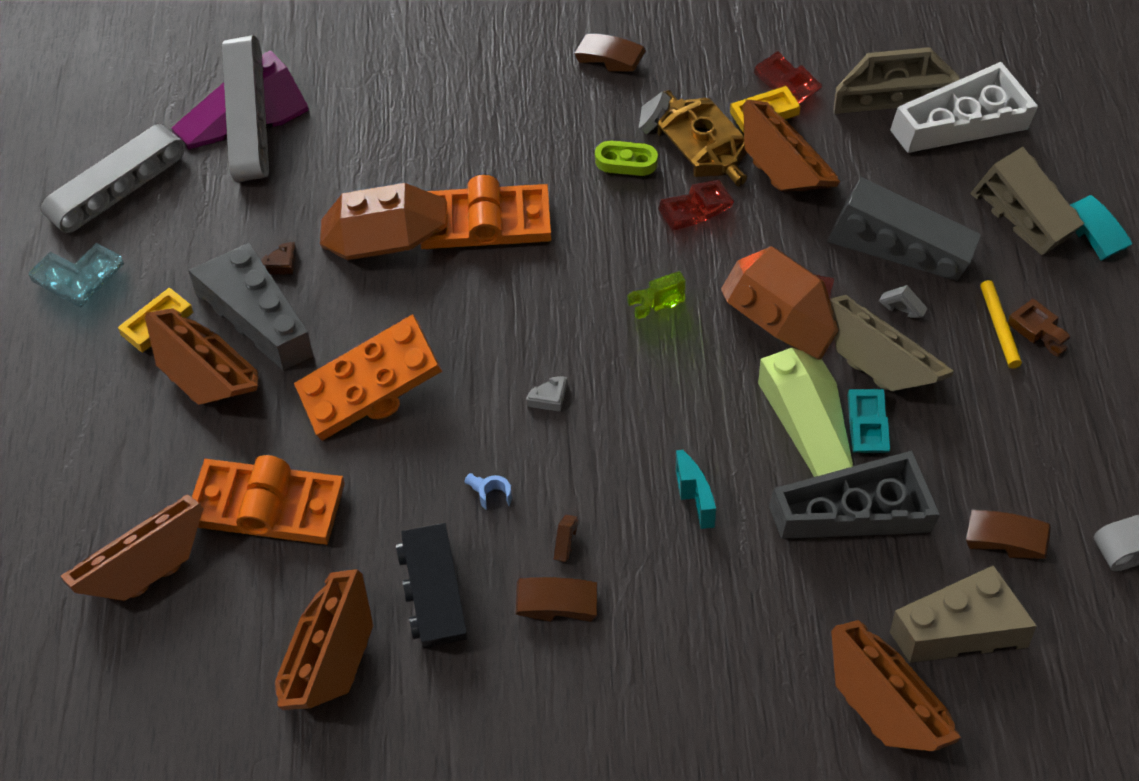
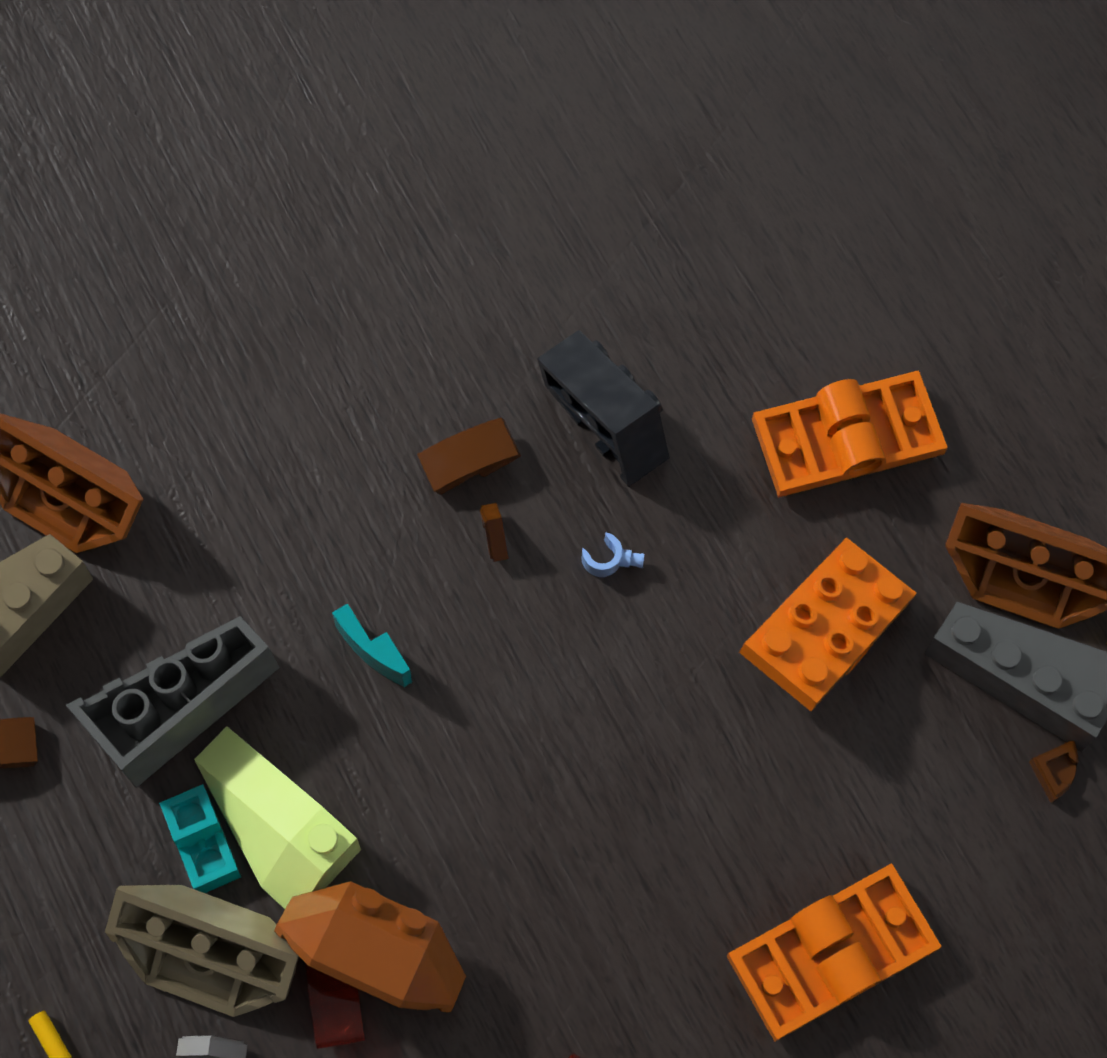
camera: 150 degrees right, 15 degrees up
(140, 555) = (943, 304): dark orange wedge -> none
(326, 644) = (676, 286): dark orange wedge -> none
(382, 221) = (948, 858): dark orange wedge -> none
(548, 395) = (608, 715): light grey tile -> none
(661, 294) = (530, 921): clear neon green plate -> none

